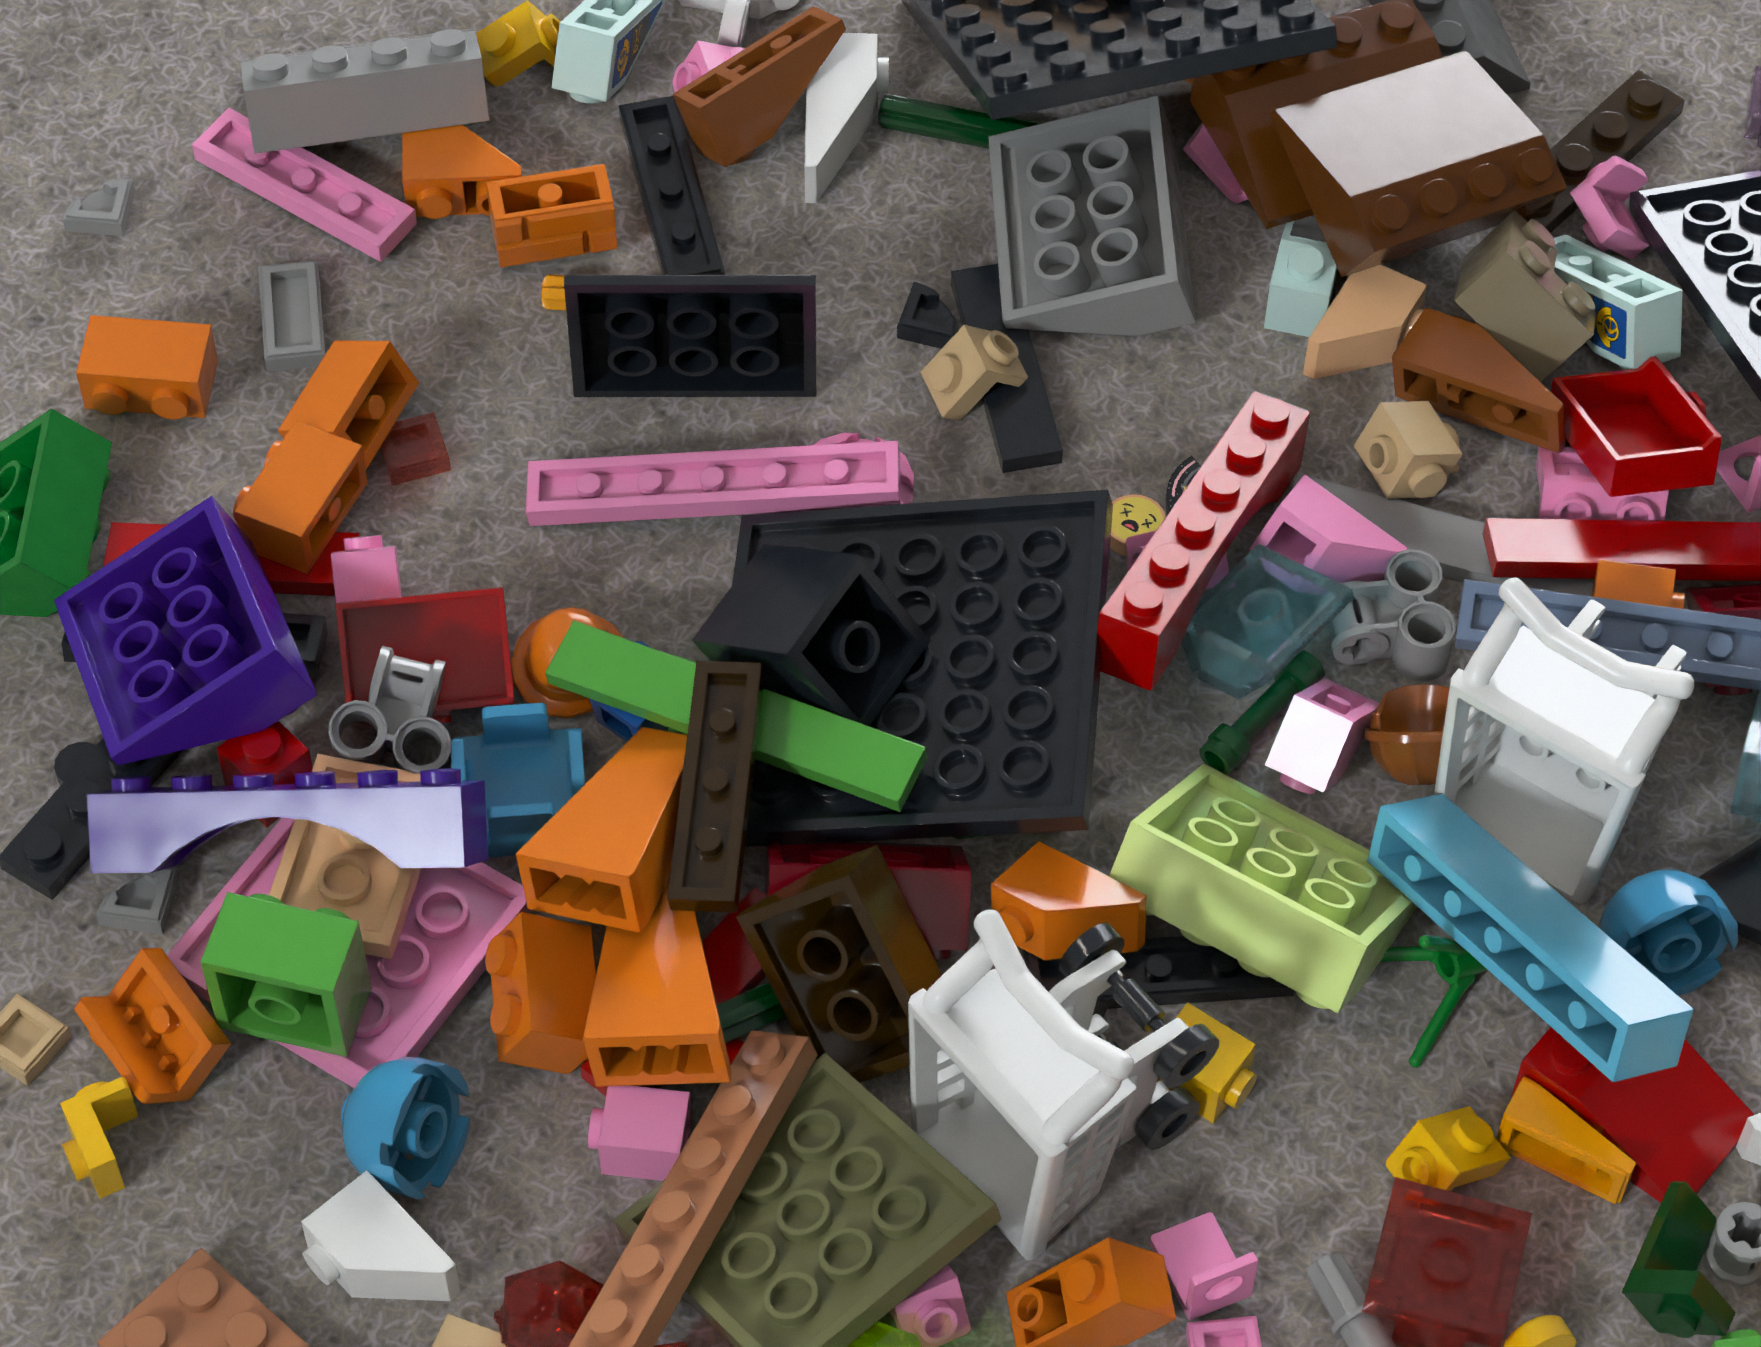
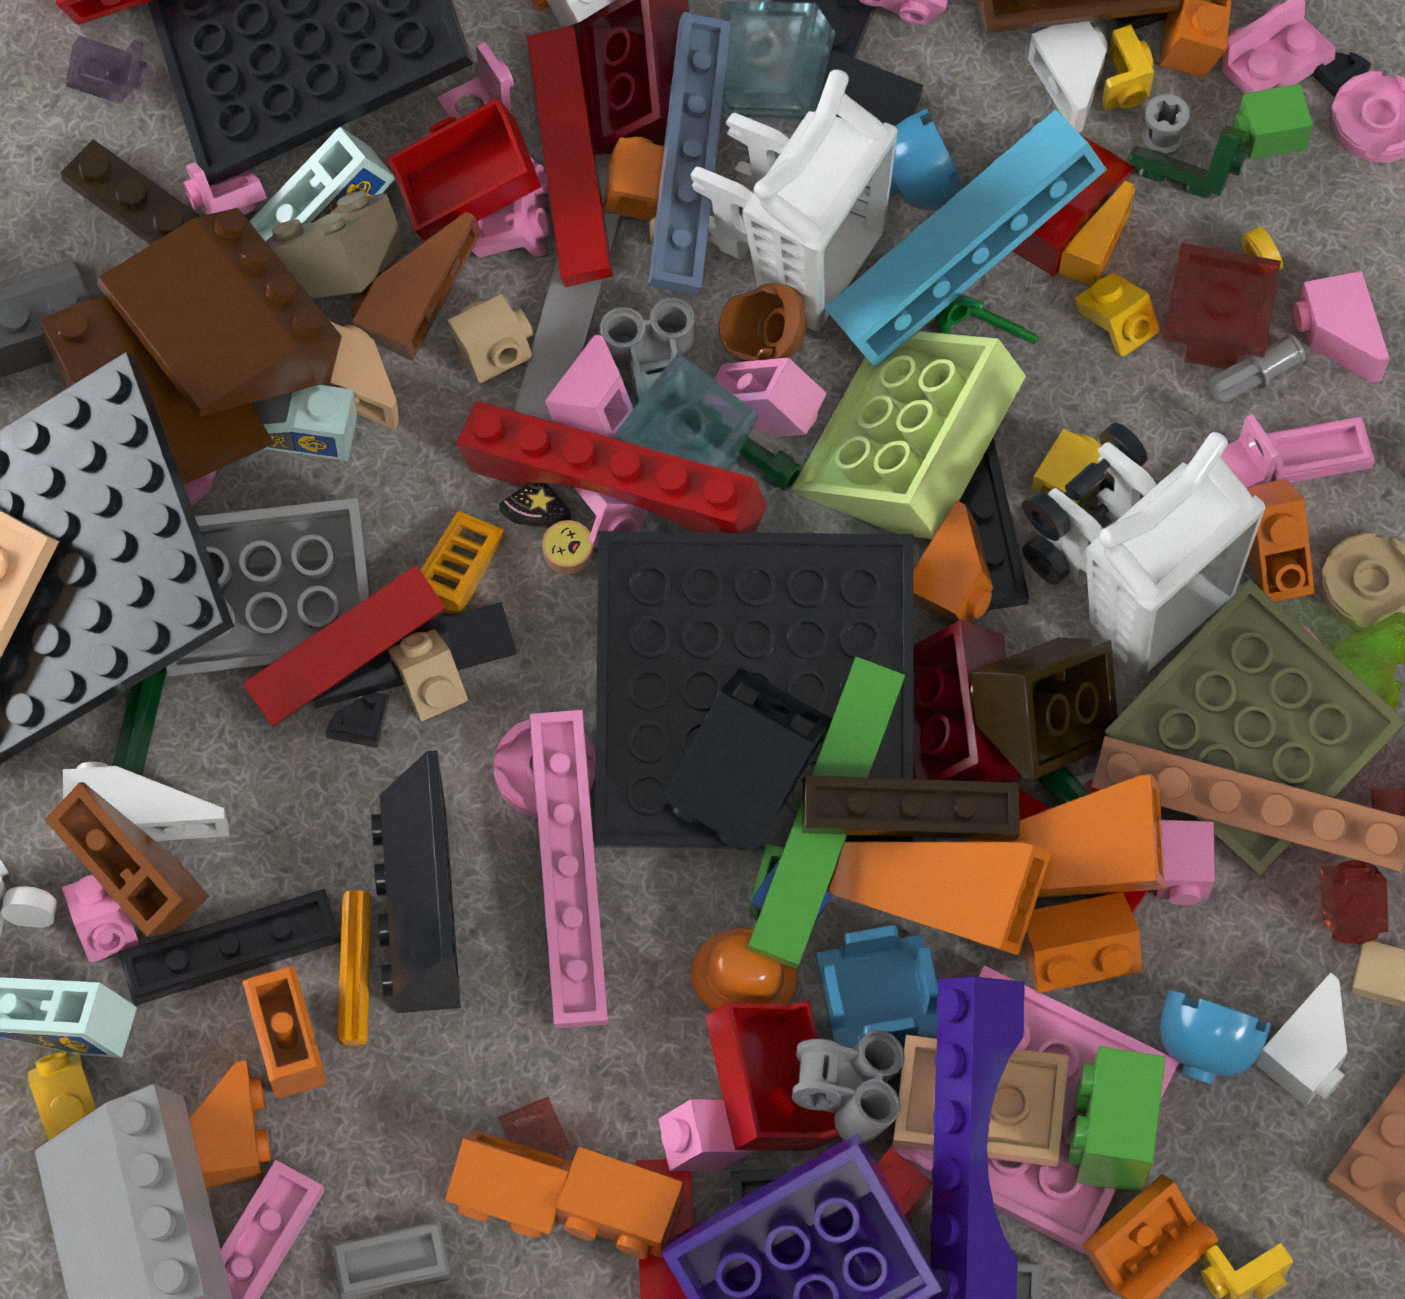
camera: 95 degrees left, 10 degrees up
(1007, 285) = (344, 646): none -> red tile
(1108, 388) = (457, 599): none -> light orange slope

